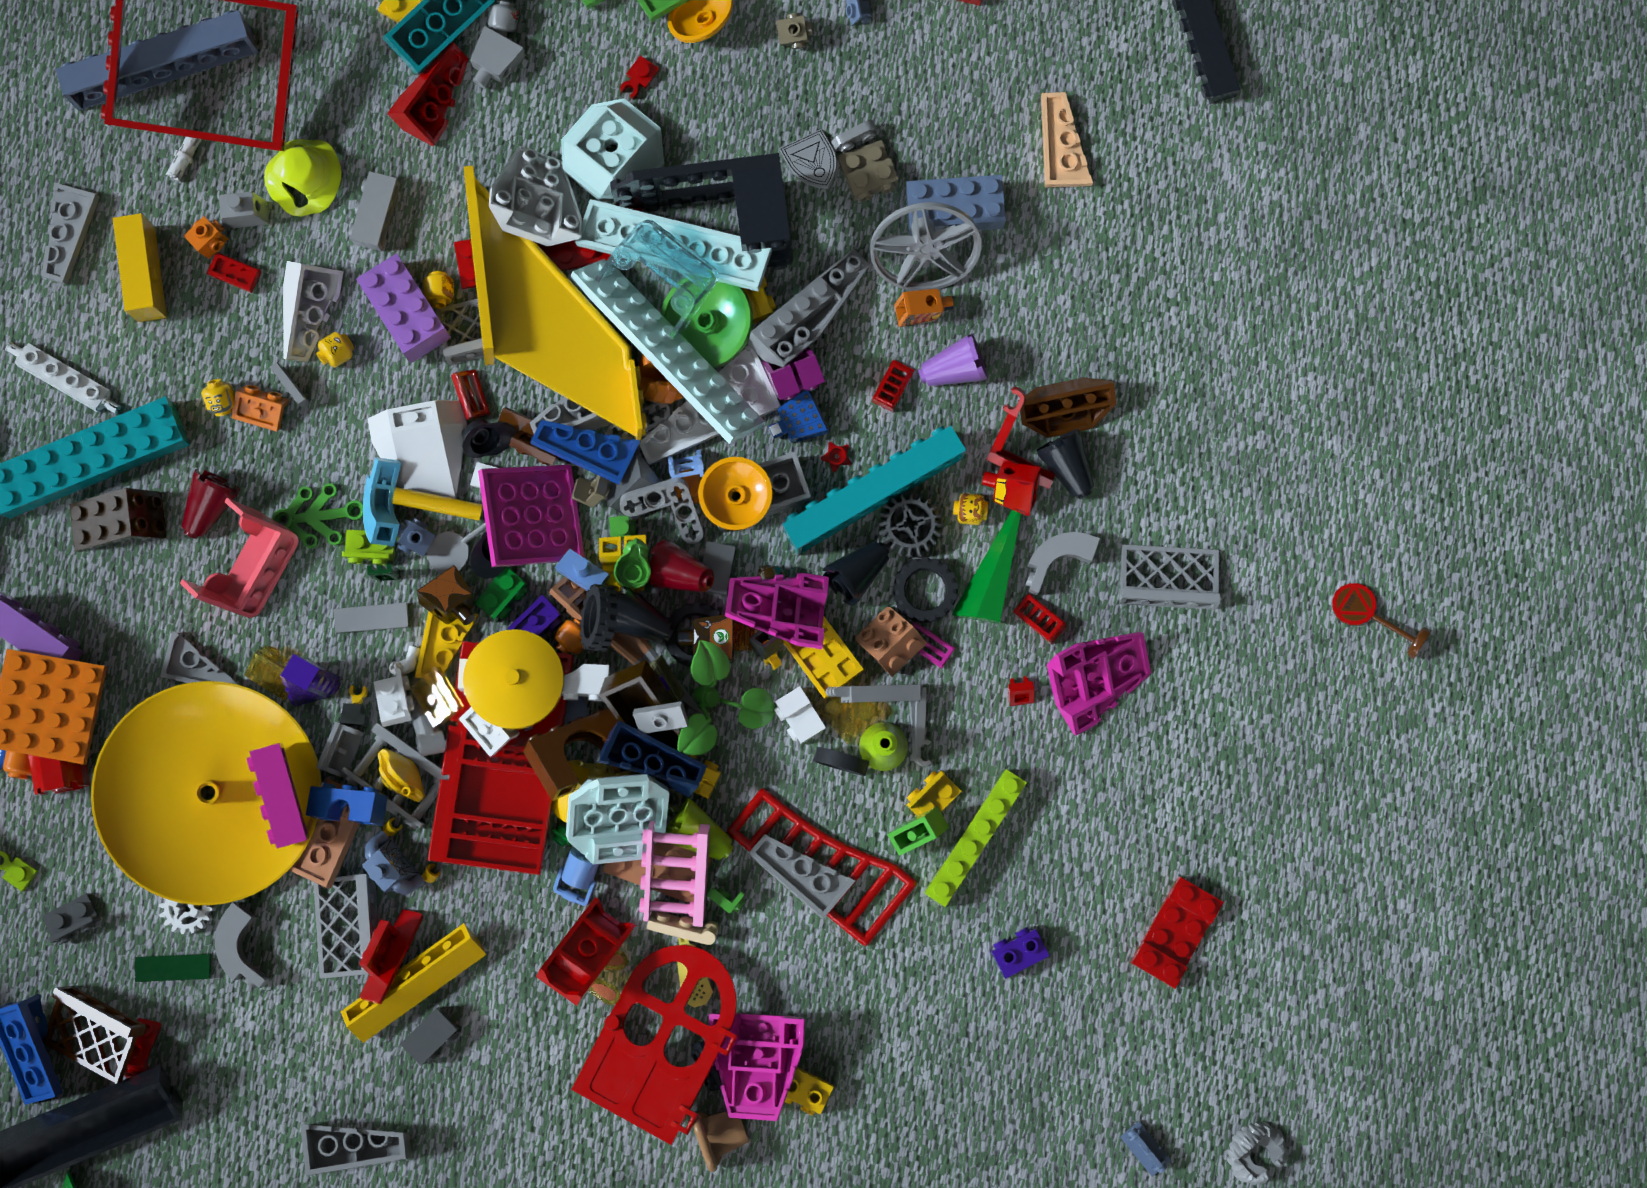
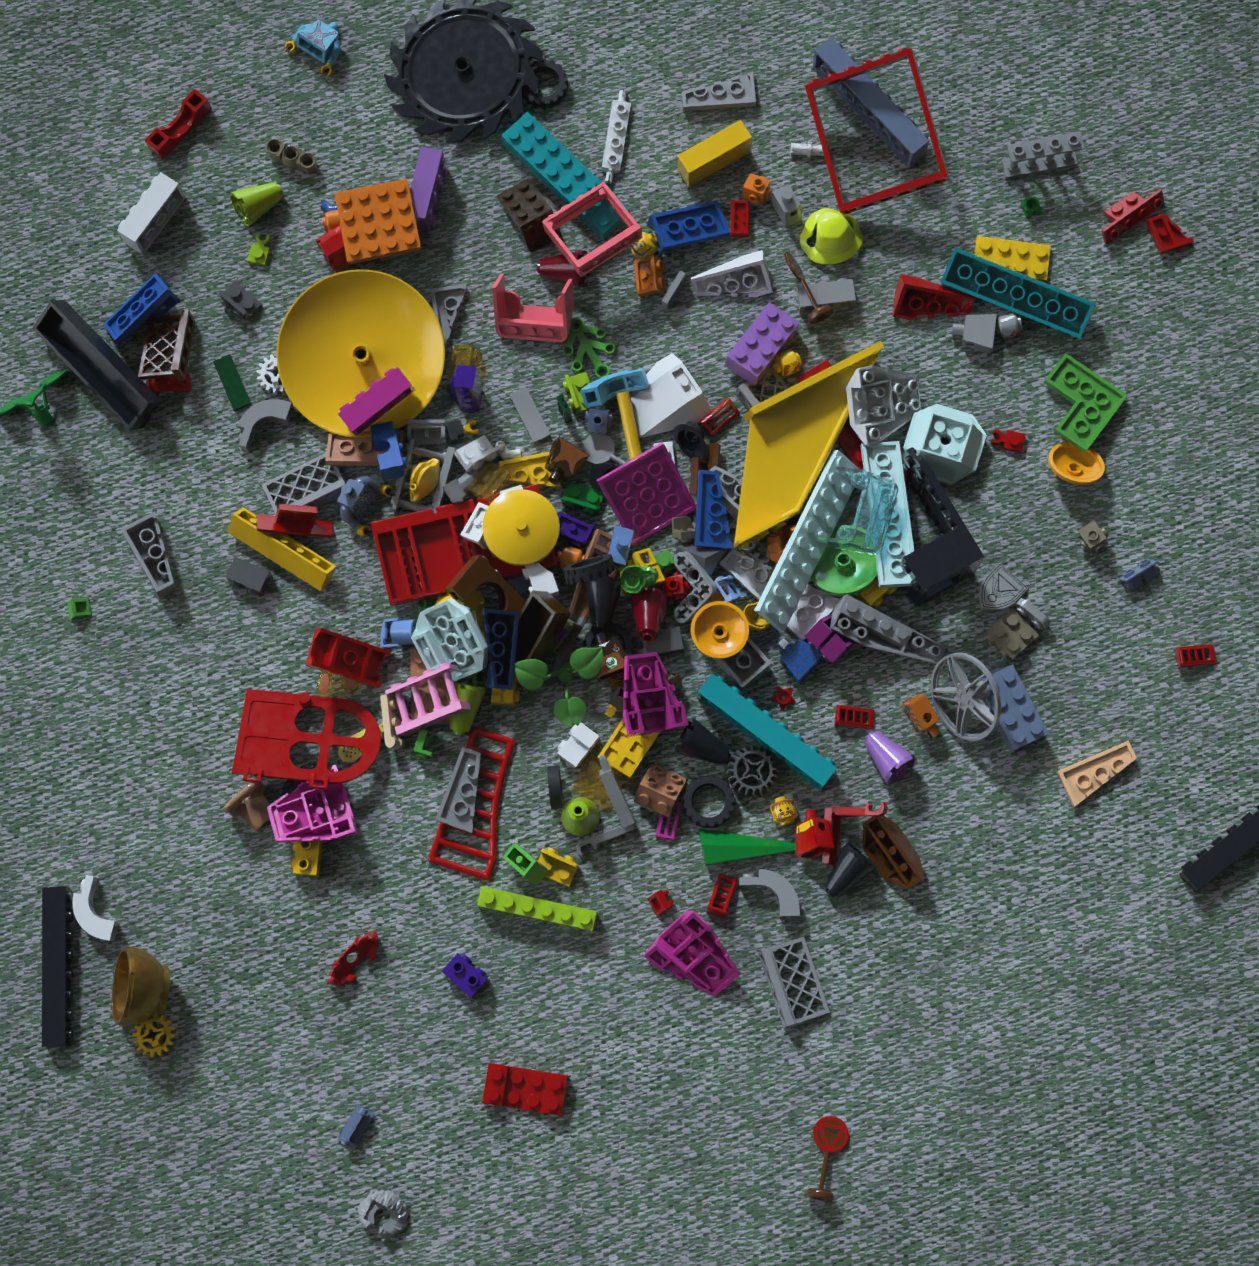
camera: 75 degrees right, 5 degrees down
(209, 439) = (606, 250): none -> coral window
(217, 335) = (688, 225): none -> blue plate
(335, 349) = (712, 310): yellow head -> none
(395, 225) = (820, 313): none -> reddish brown piece
(658, 524) = (677, 587): none -> red brick
(661, 717) = (533, 641): light grey plate -> none
(739, 447) = (760, 623): none -> yellow hair
(955, 1097) = (341, 968): none -> red piece

